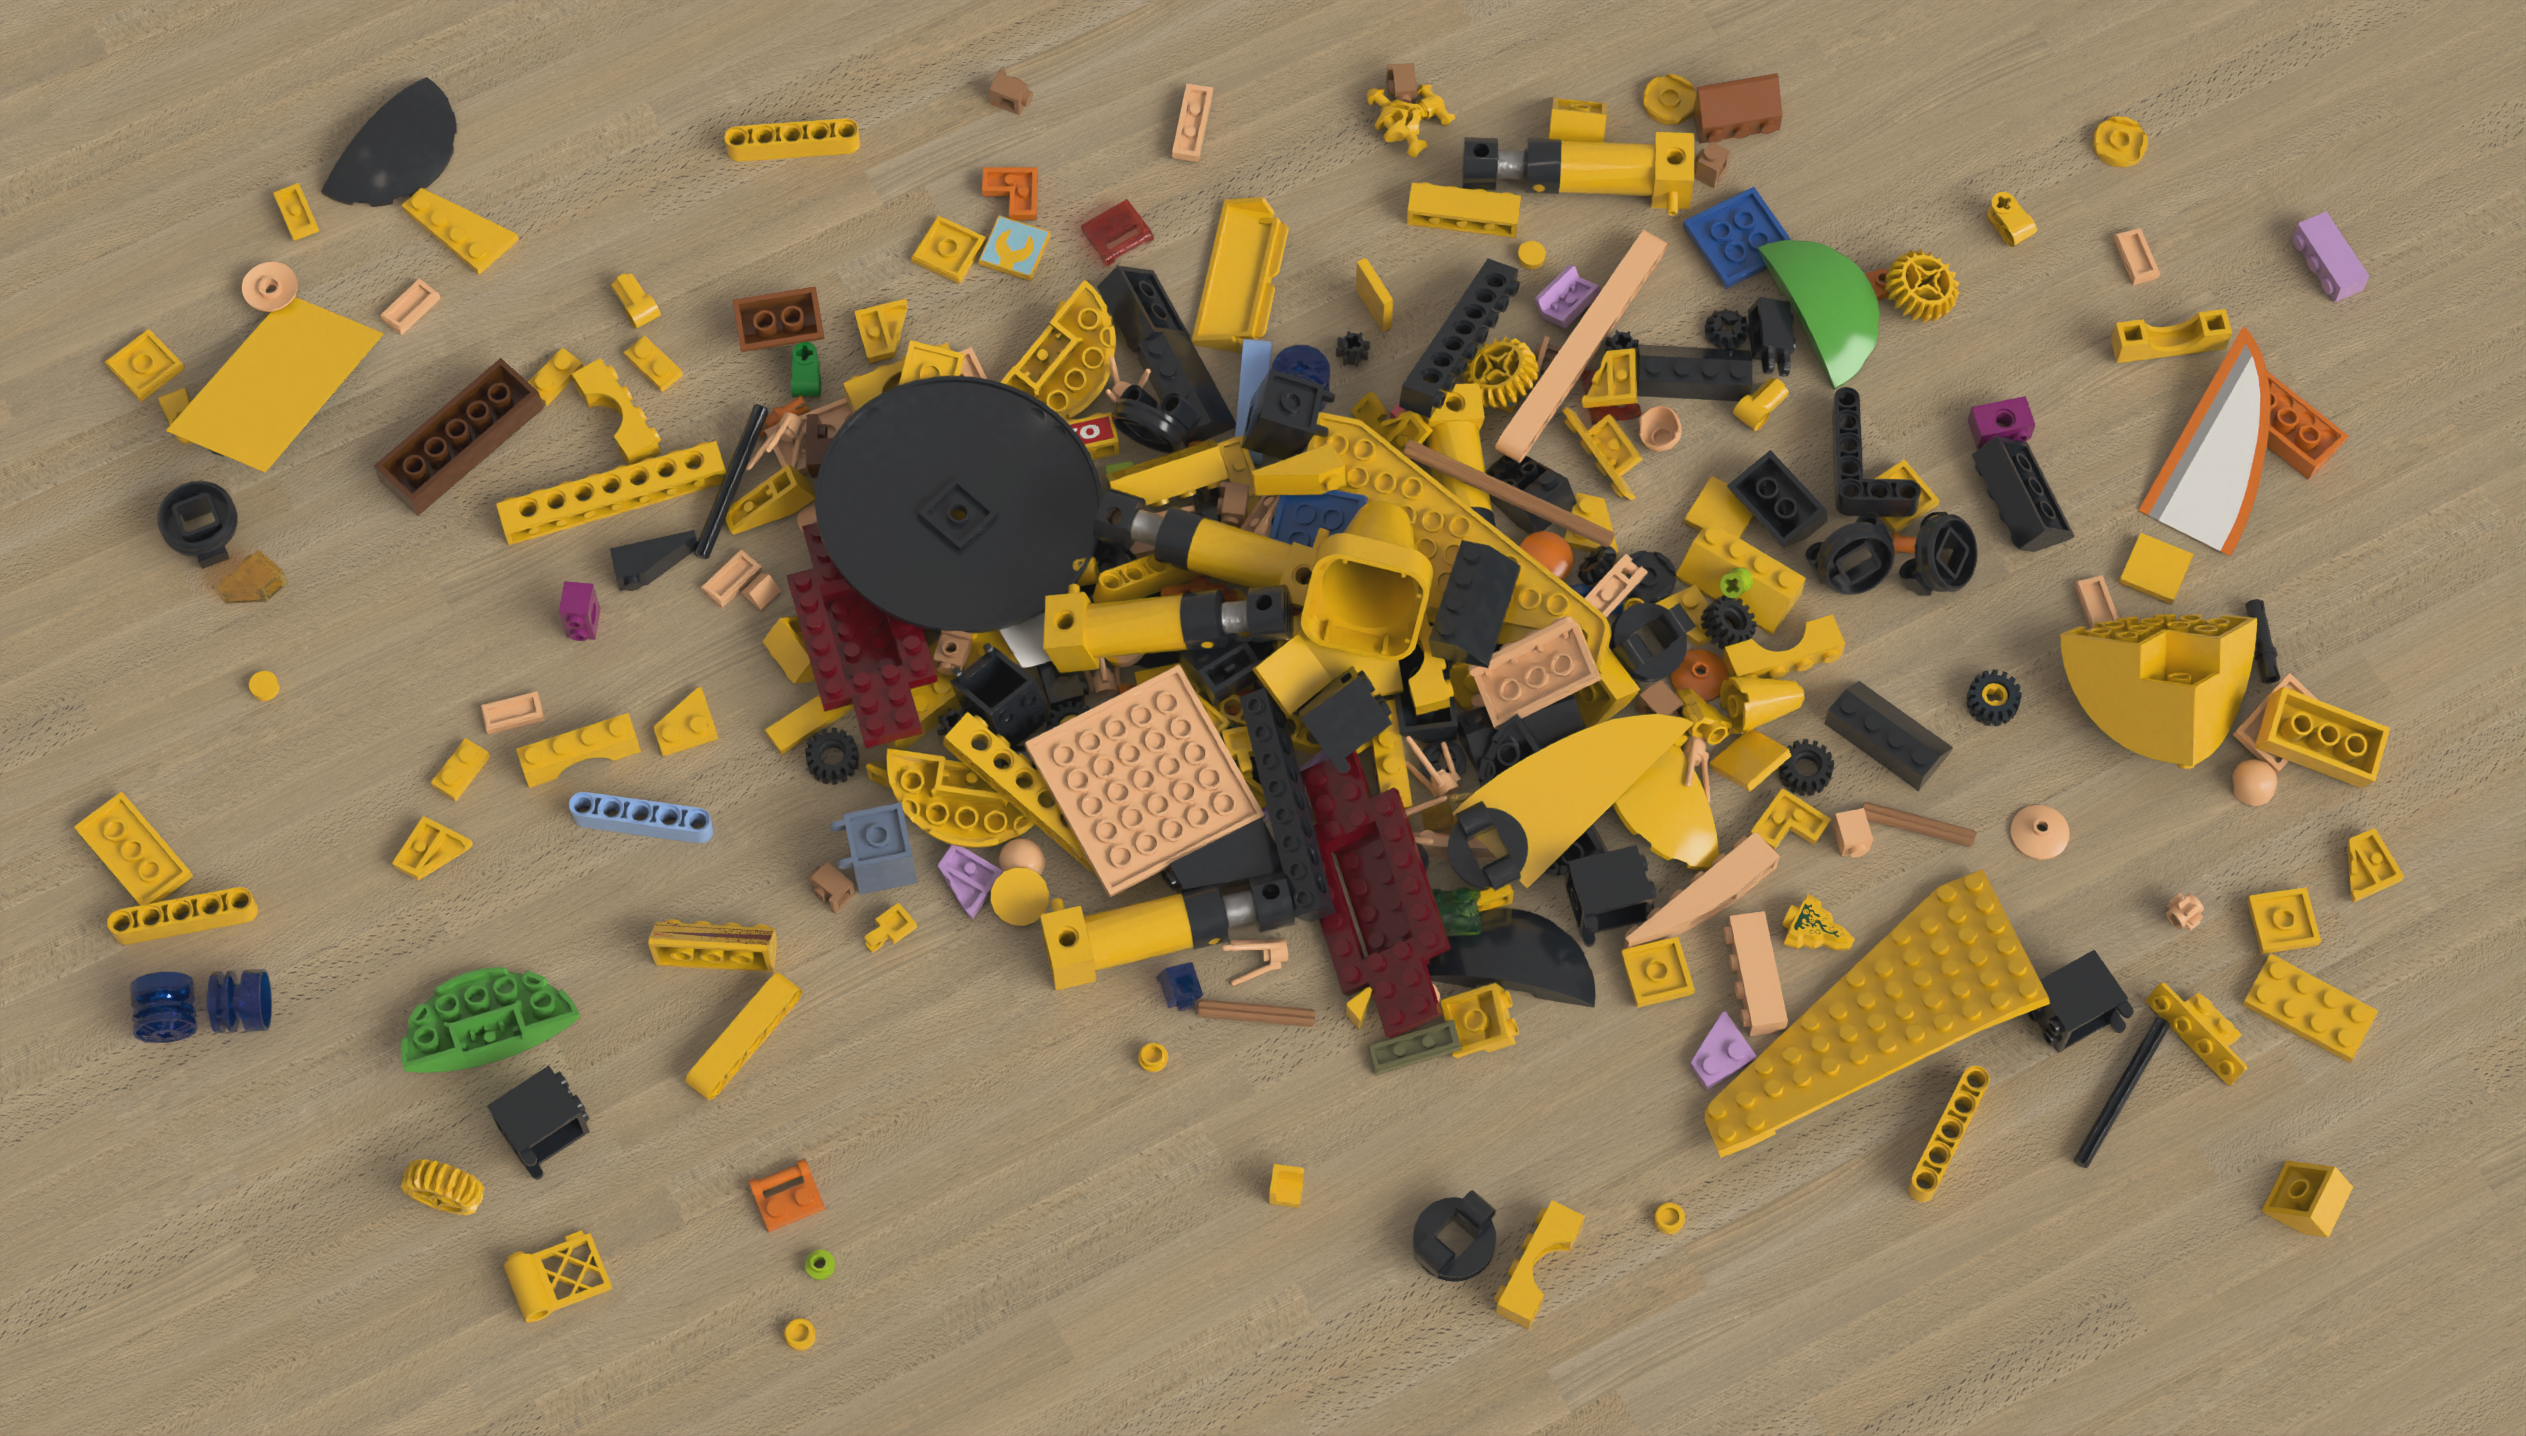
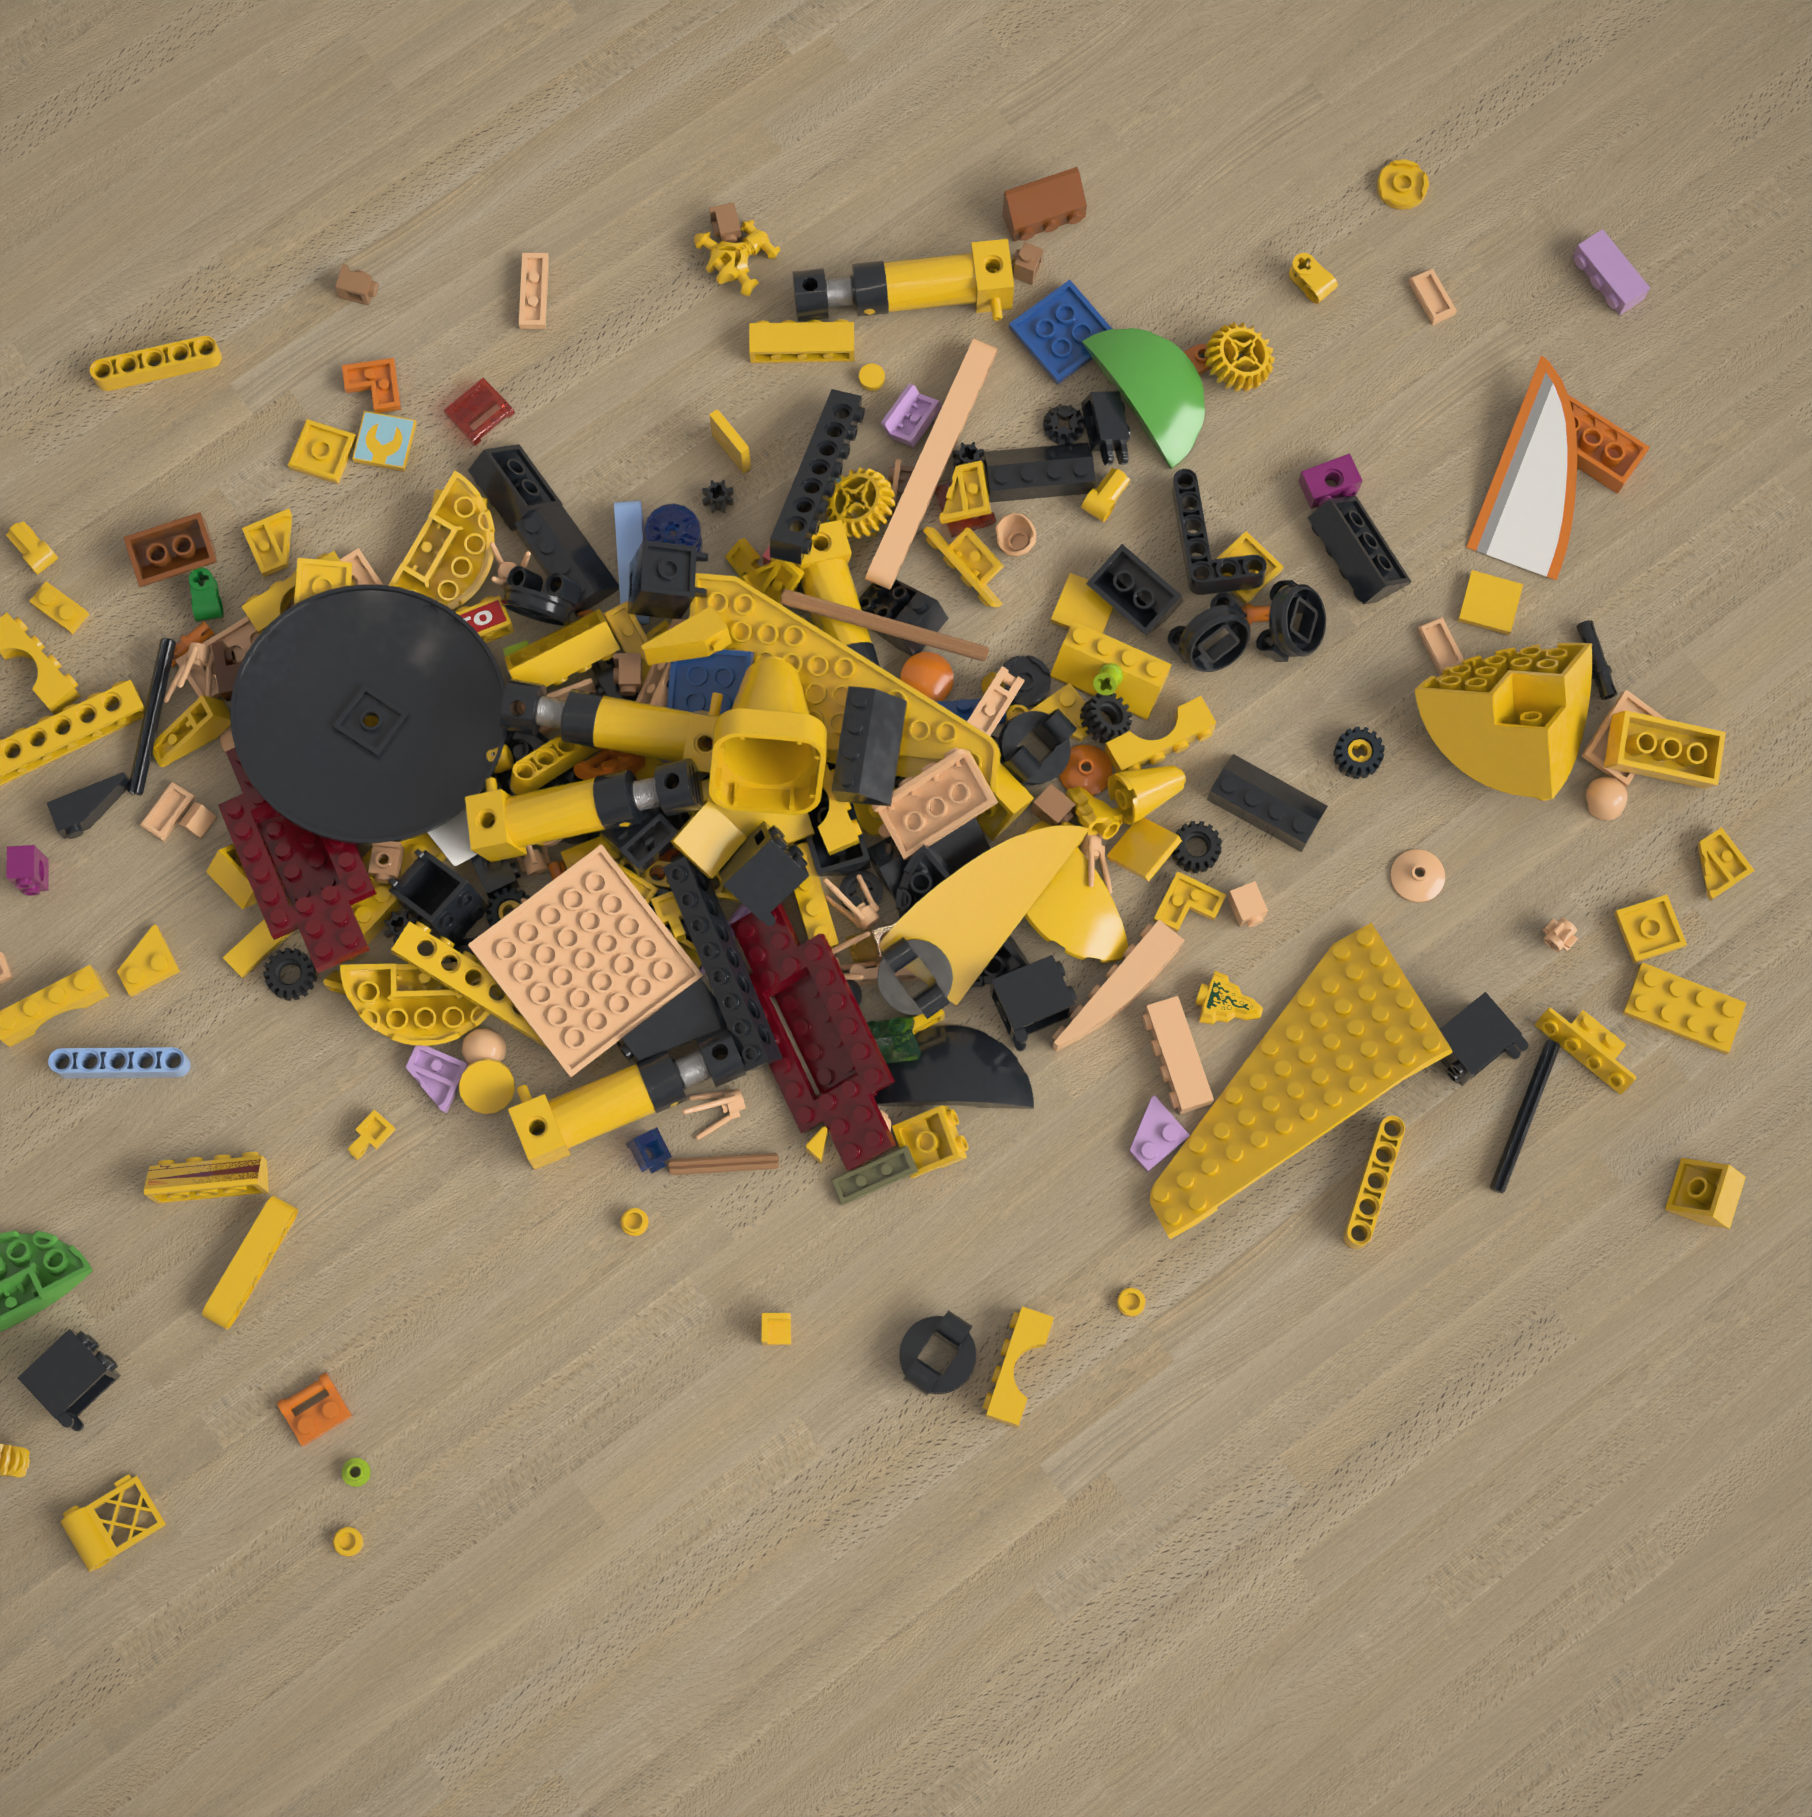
camera: 10 degrees left, 10 degrees up
(831, 886) = (308, 1102): medium nougat brick -> none
(878, 848) = (346, 1063): sand blue container -> none
(1240, 275) = (601, 437): yellow slope -> none
(1578, 120) = (896, 237): yellow slope -> none
(1595, 511) = (965, 626): yellow wing -> none
(1597, 564) = (970, 685): black gear -> none
(1657, 972) = (1087, 1067): yellow plate -> none
(1669, 99) = (978, 202): yellow tile -> none
(1919, 824) = (1306, 885): medium nougat axle -> none
(2201, 333) = (1451, 381): yellow arch -> none

